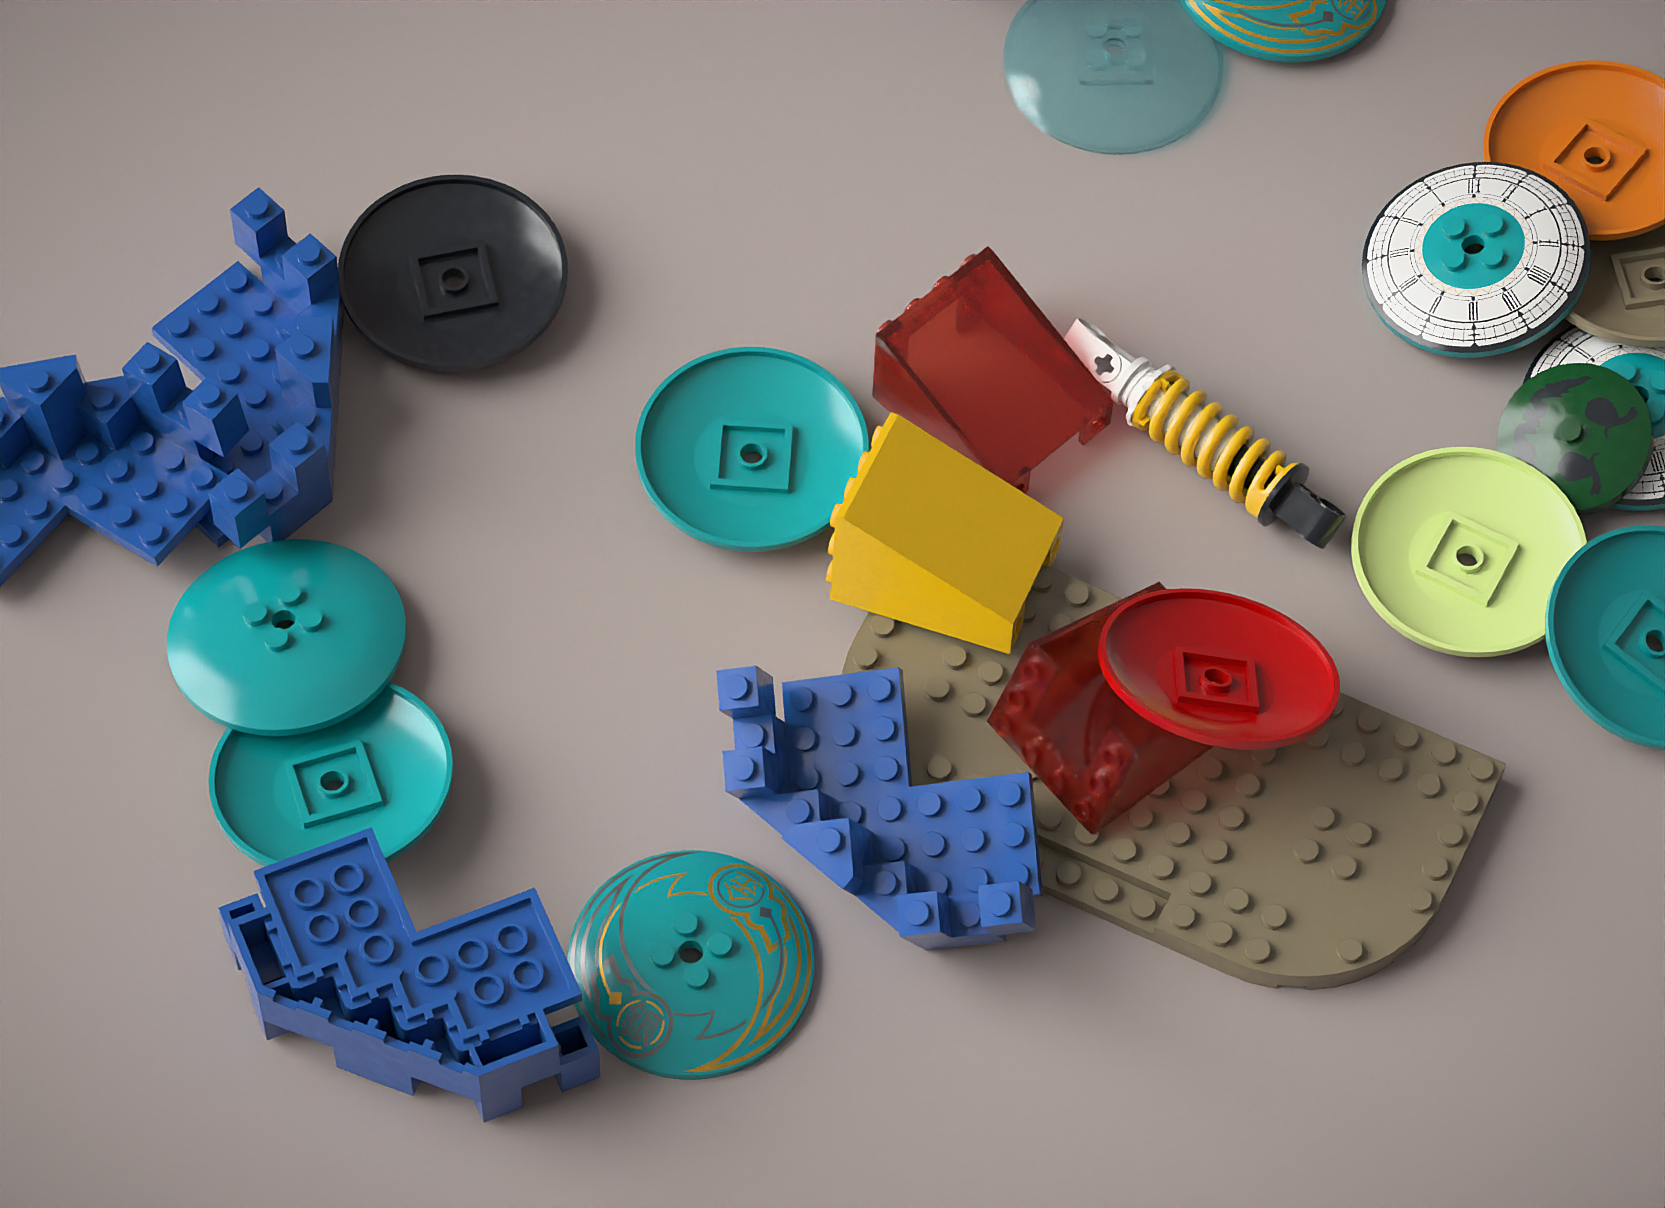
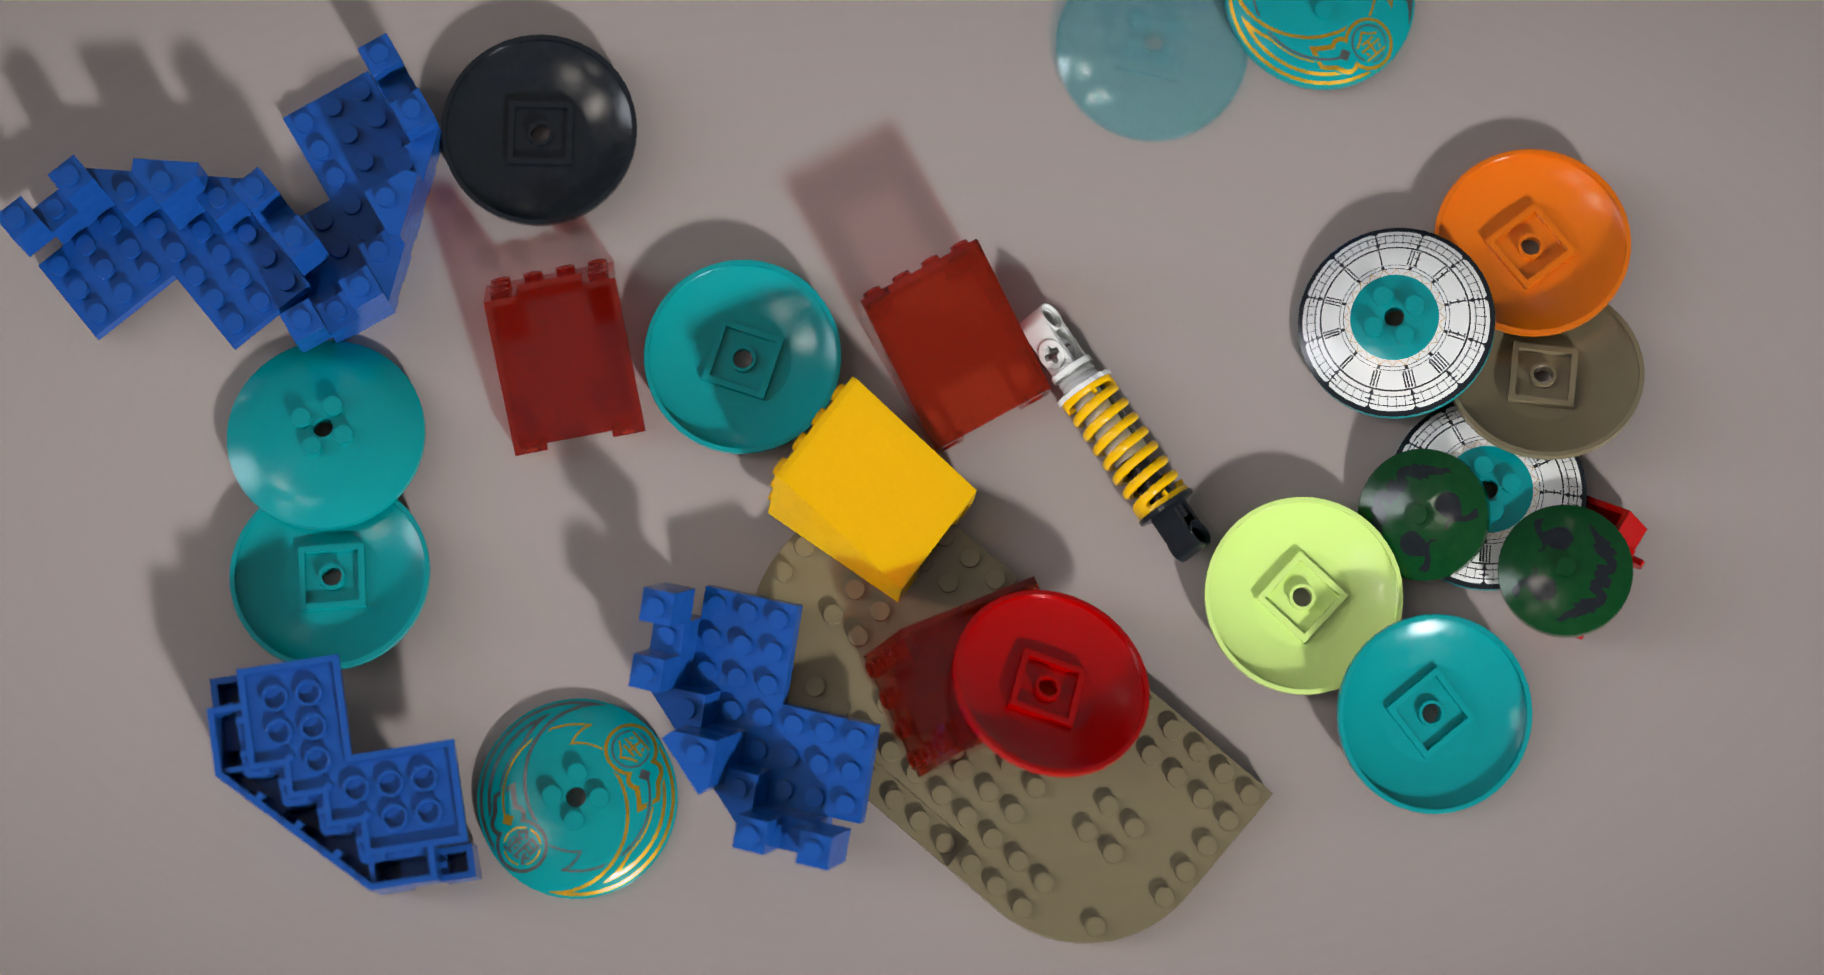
camera: 10 degrees right, 20 degrees up
(547, 491) = (563, 355): none -> clear red windscreen

